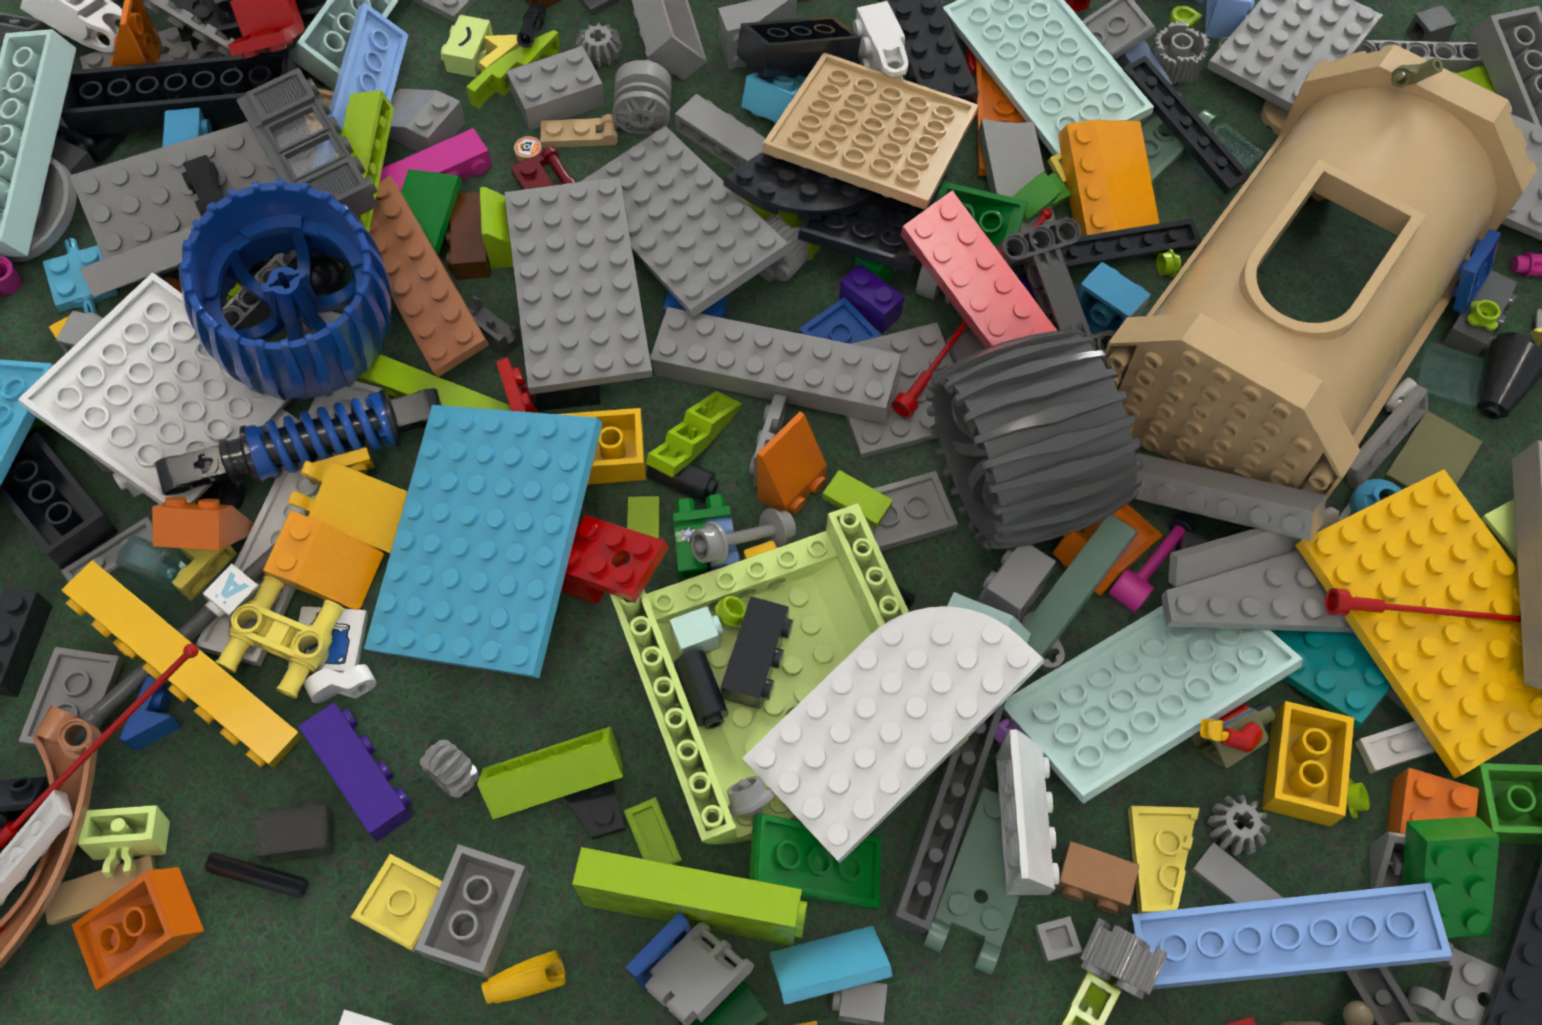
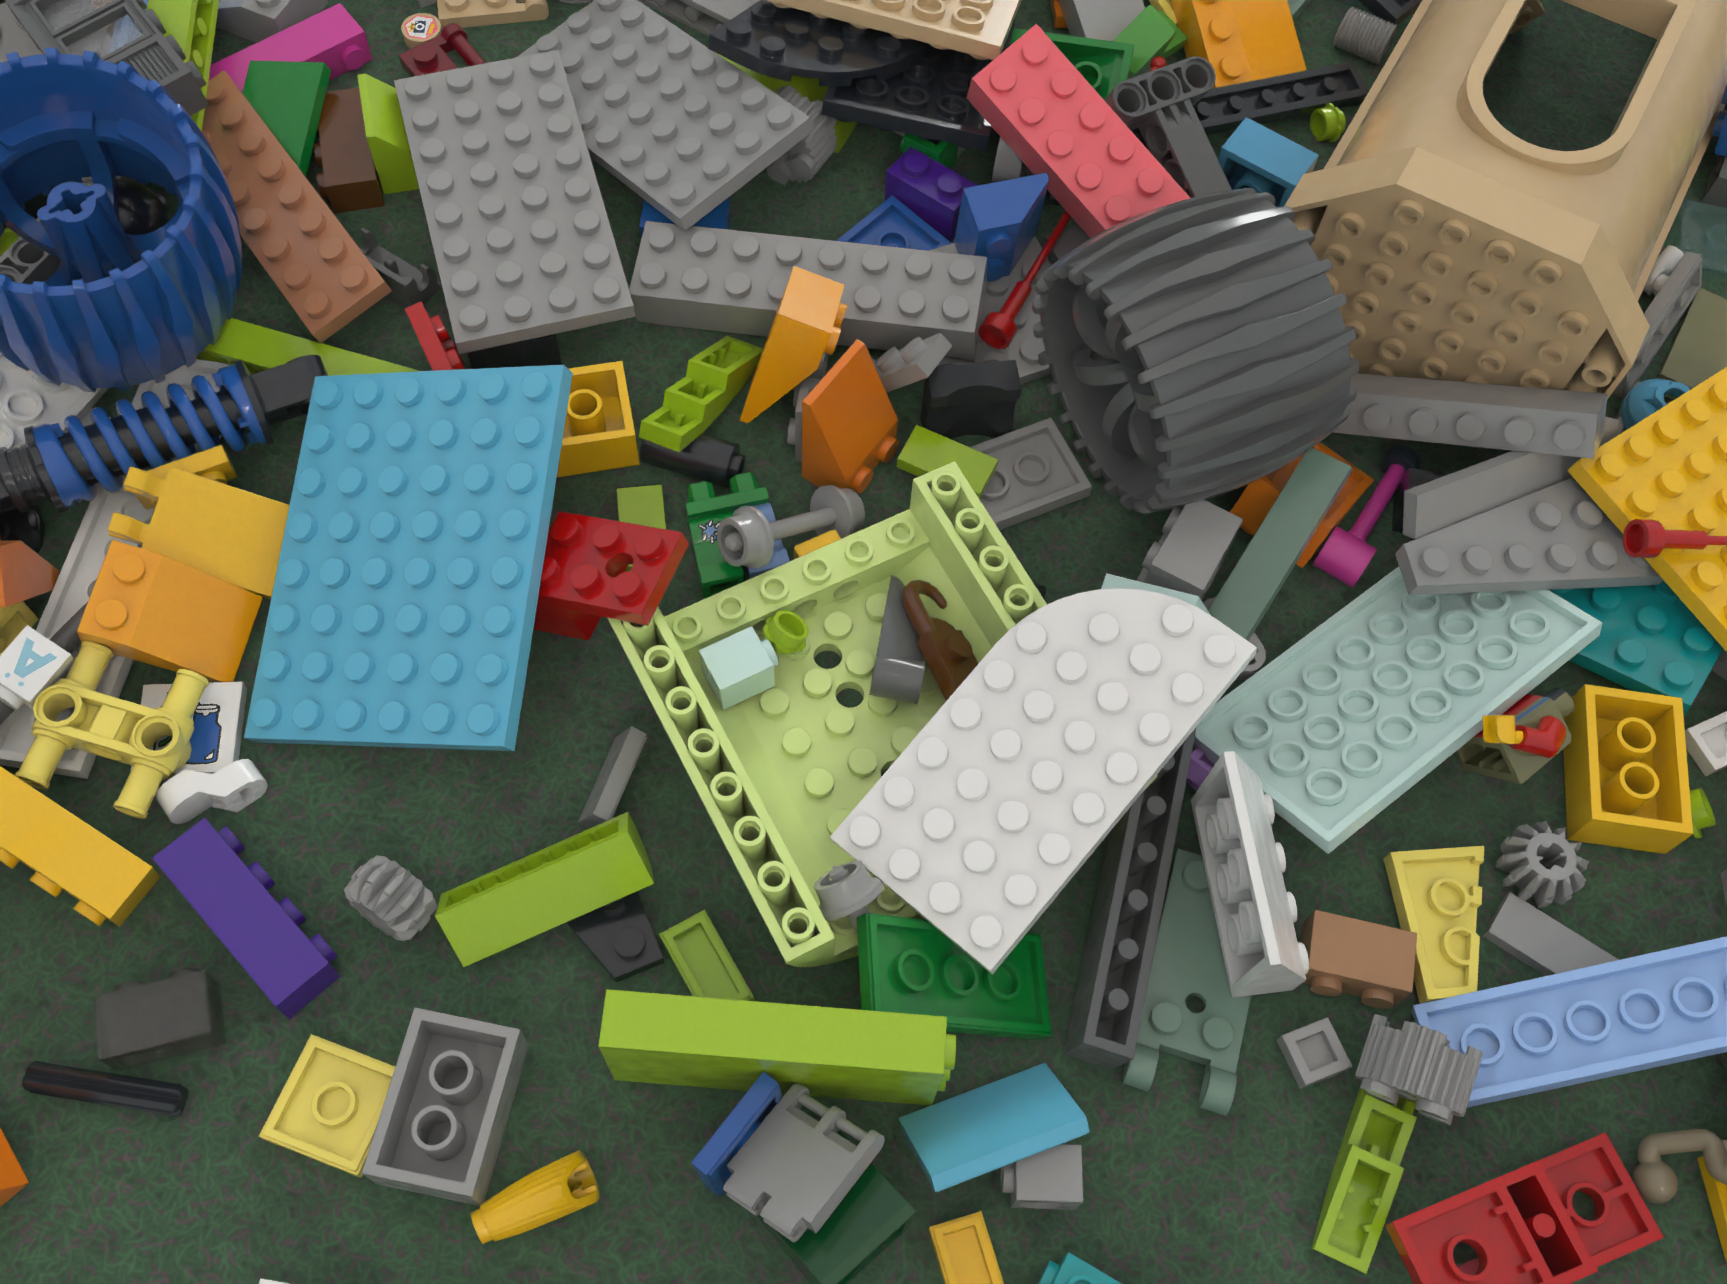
camera: 10 degrees left, 0 degrees up
(604, 700) = (613, 778): none -> light grey tile
(701, 689) = (758, 745): black brick -> none
(756, 653) = (831, 688): black brick -> none
(761, 403) = (798, 338): none -> light orange slope
(807, 630) = (898, 659): none -> dark grey piece
(835, 628) = (942, 645): none -> reddish brown plate
(836, 427) = (912, 362): none -> light grey plate
(879, 454) = (971, 399): none -> black brick
(914, 328) = (1000, 221): none -> blue slope
(1205, 197) = (1364, 35): none -> light grey piece

